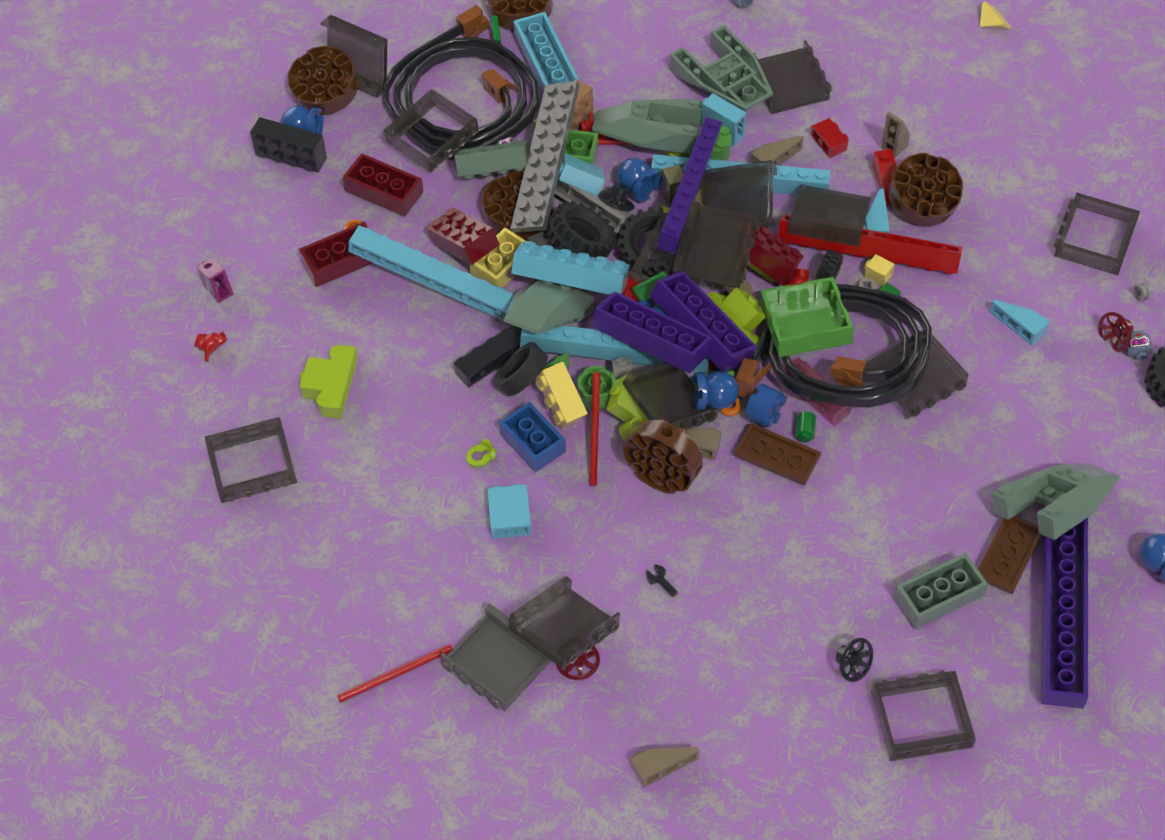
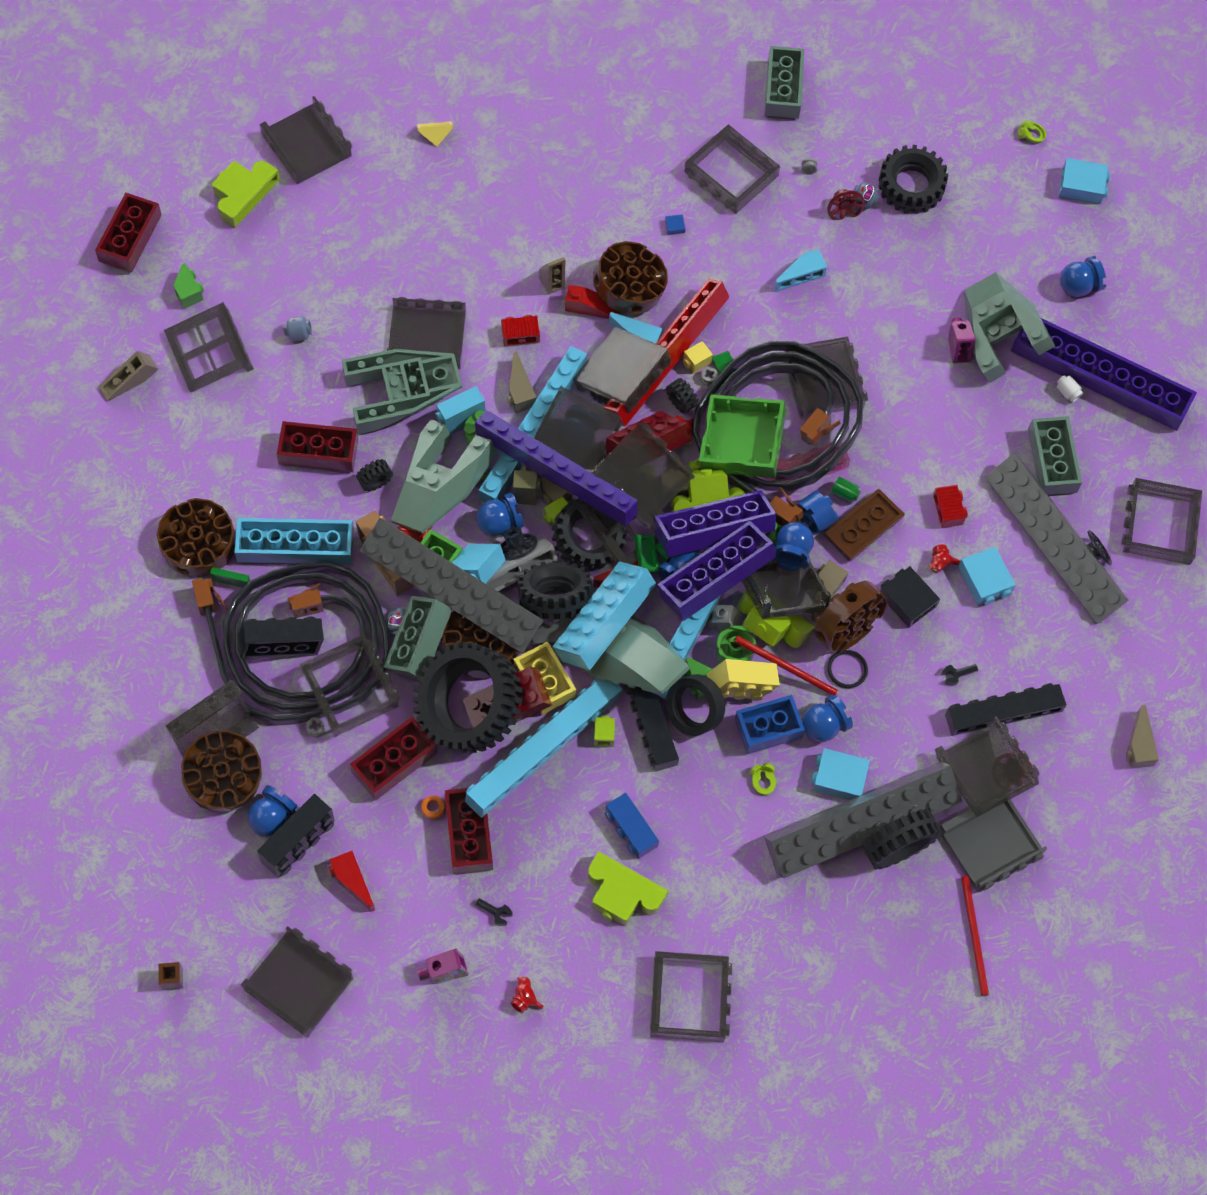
camera: 75 degrees left, 10 degrees up
(145, 112) = (170, 975): none -> reddish brown brick
(169, 194) = (298, 981): none -> clear smoke panel
(270, 195) = (349, 877): none -> red slope
(279, 301) = (495, 911): none -> black bar
(392, 367) = (631, 826): none -> blue brick
(452, 72) = (280, 637): none -> black brick
(454, 565) = (901, 838): none -> black tyre
(467, 183) = (435, 690): none -> black tyre
(467, 535) = (853, 821): none -> dark grey brick
(473, 320) = (604, 731): none -> lime brick
(554, 477) = (825, 720): none -> blue tile
(622, 503) = (842, 684): none -> black tyre
(632, 85) = (374, 475): none -> black tyre
(640, 42) = (317, 446): none -> dark red brick
(640, 630) = (1007, 708): none -> black brick
(719, 512) = (909, 596): none -> black brick
(774, 528) = (941, 558): none -> red animal
(775, 571) = (986, 576): none -> medium azure brick
(835, 517) = (949, 506): none -> red brick
(847, 620) = (1057, 538): none -> dark grey plate
(1009, 553) = (1033, 388): reddish brown plate -> none
(1010, 212) = (675, 224): none -> blue tile
(1023, 466) = (959, 333): none -> magenta torso
(1029, 586) = (1069, 388): none -> white brick

